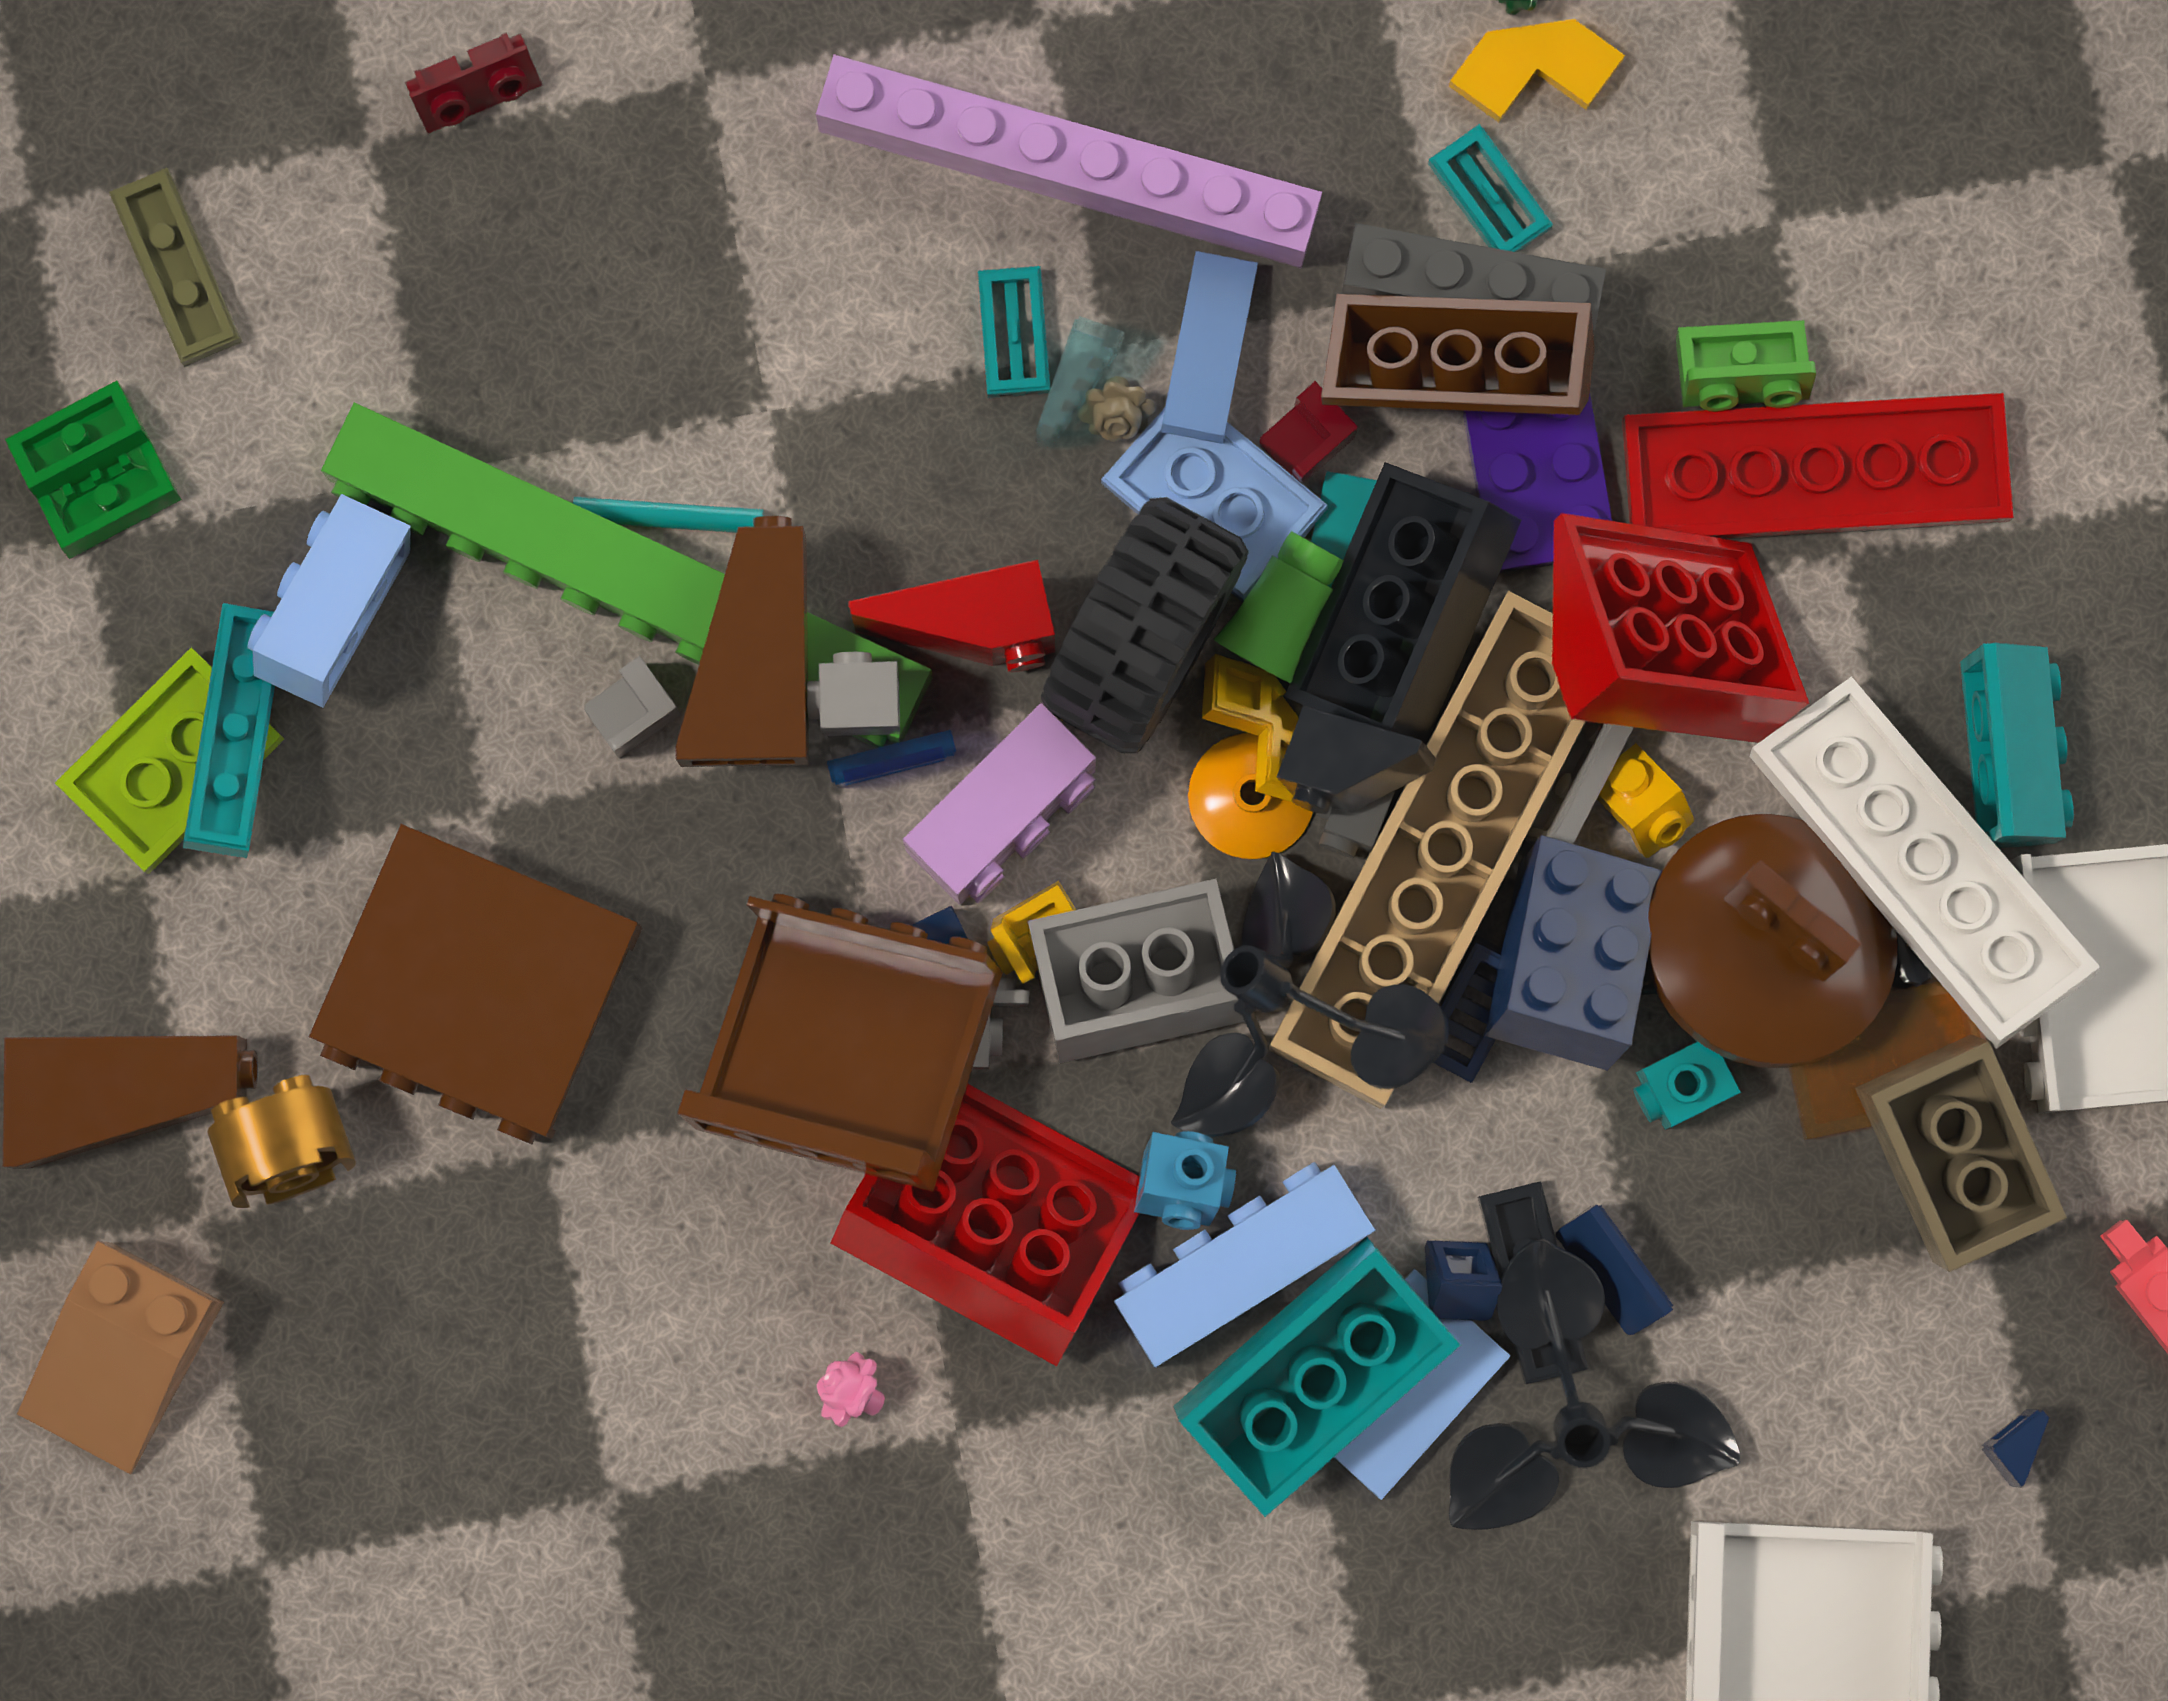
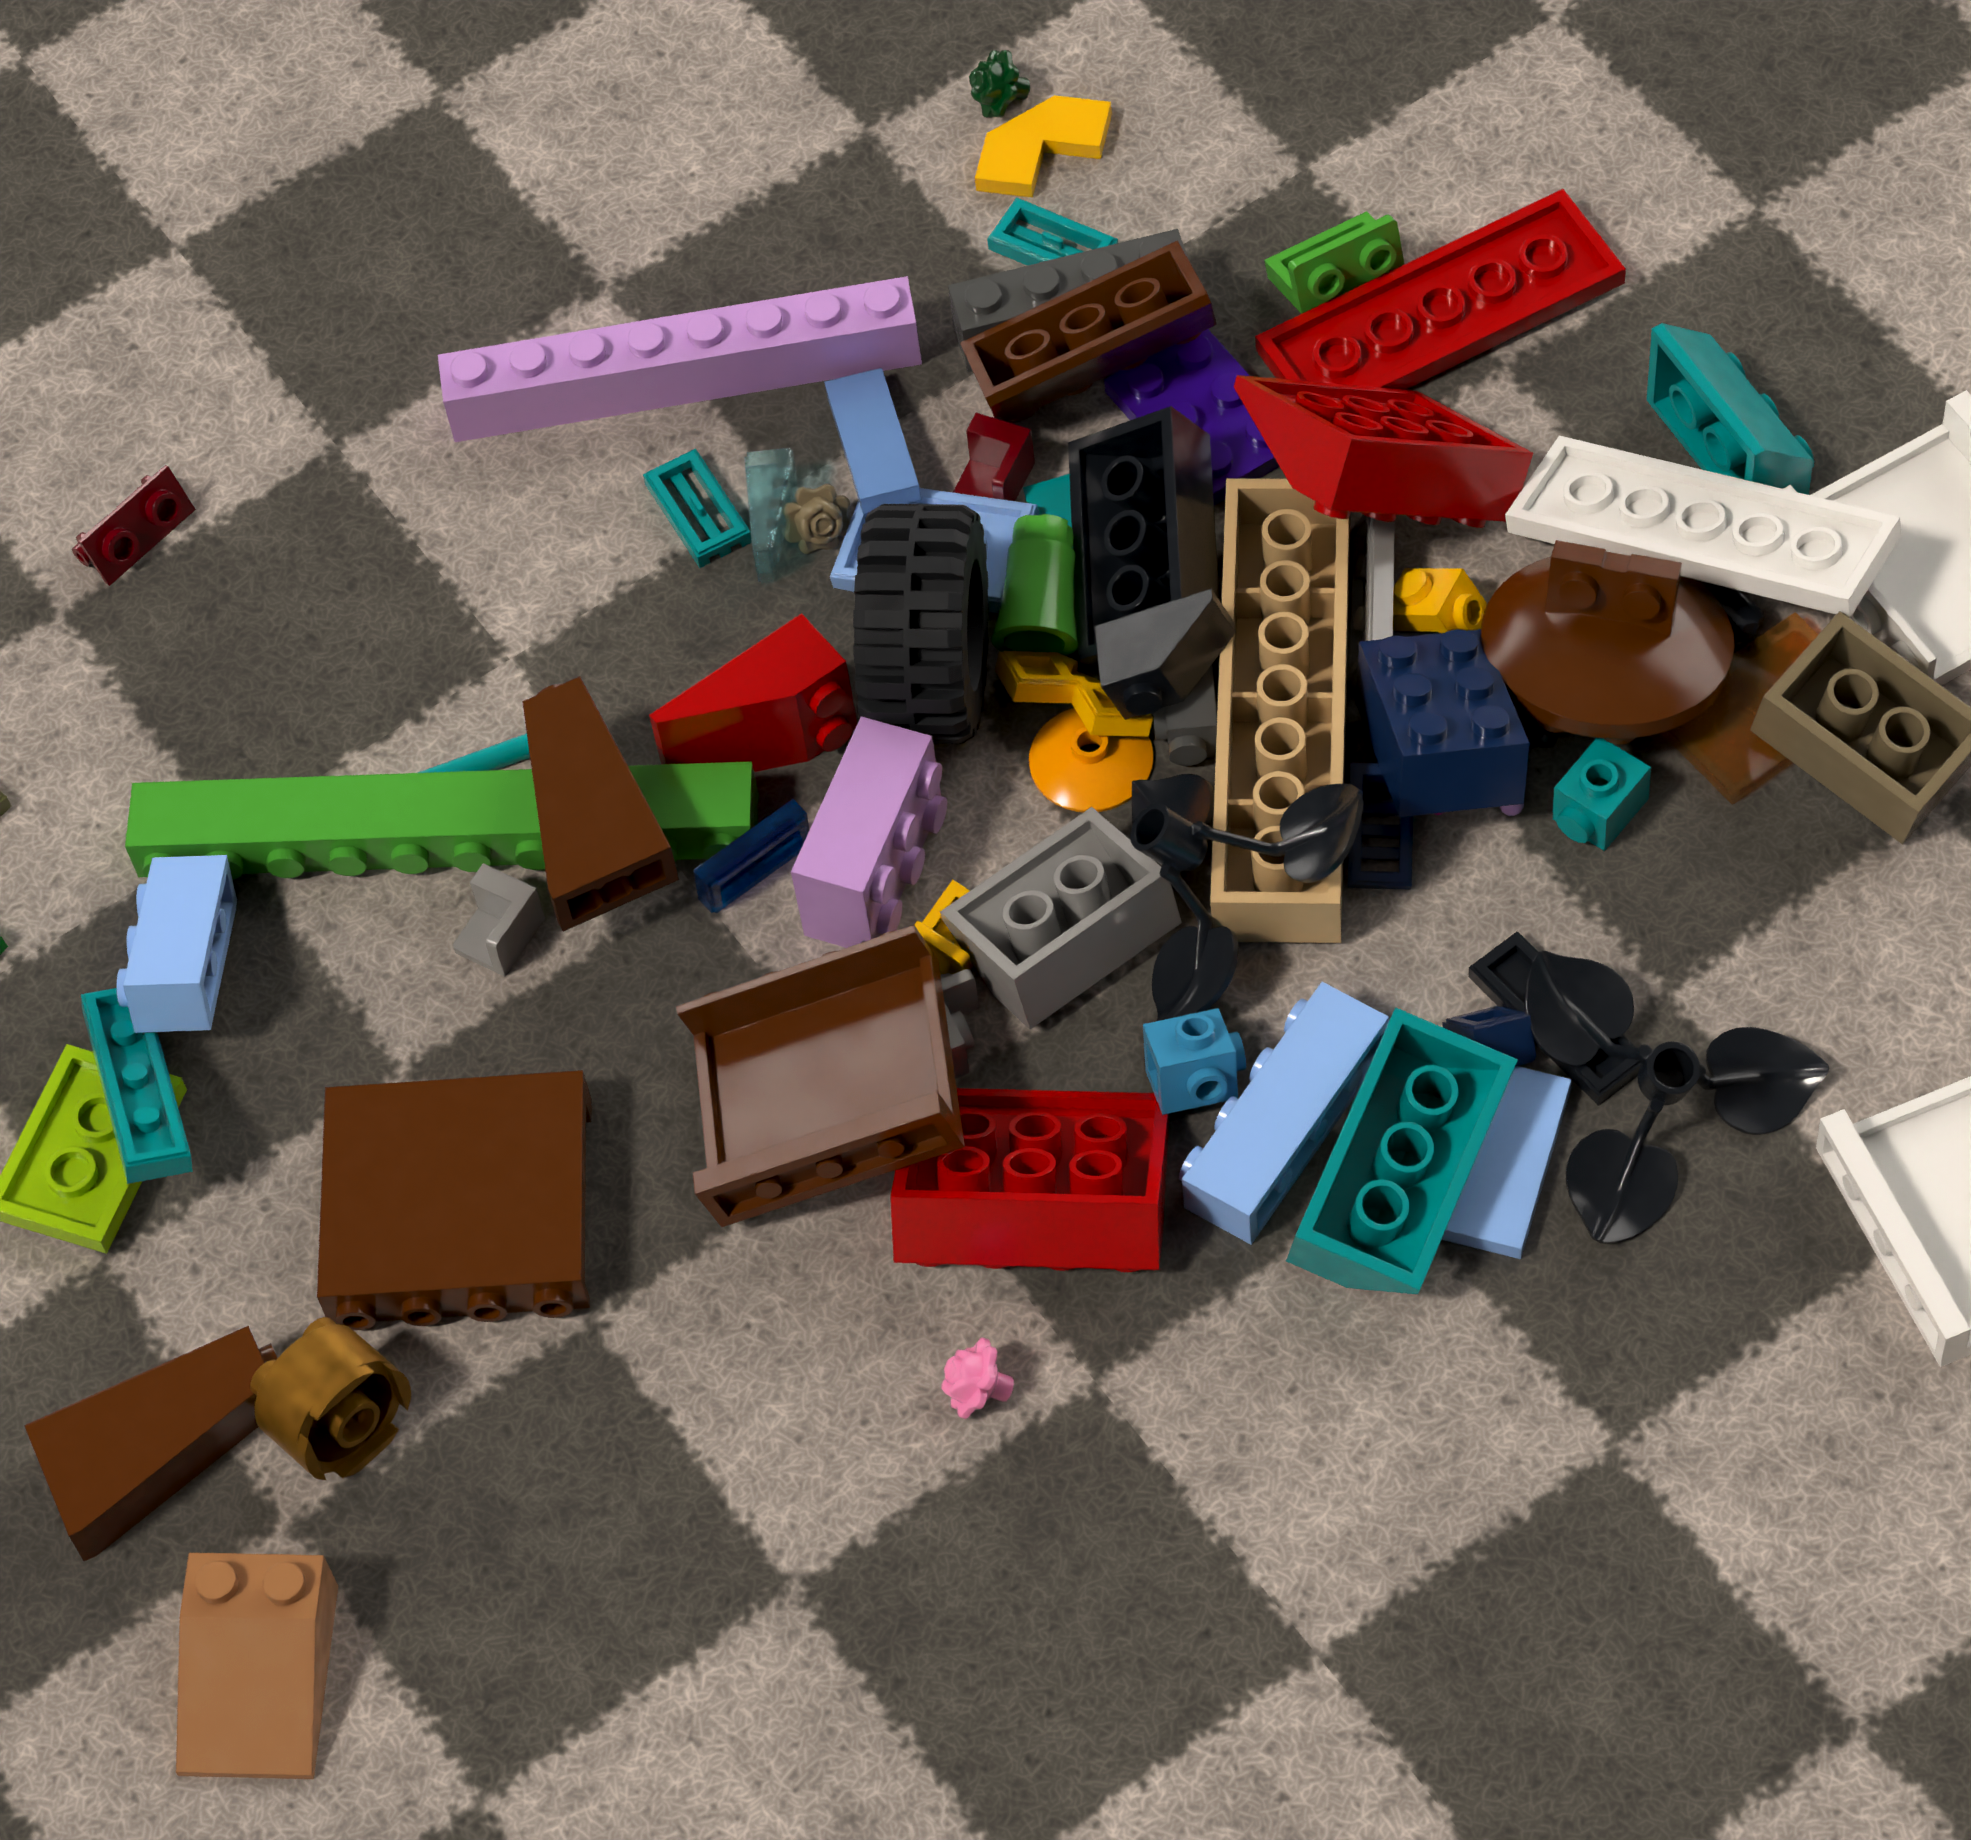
camera: 15 degrees left, 25 degrees down
(855, 696) = (696, 796): light grey brick -> none
(1627, 1284) = (1655, 973): dark blue slope -> none

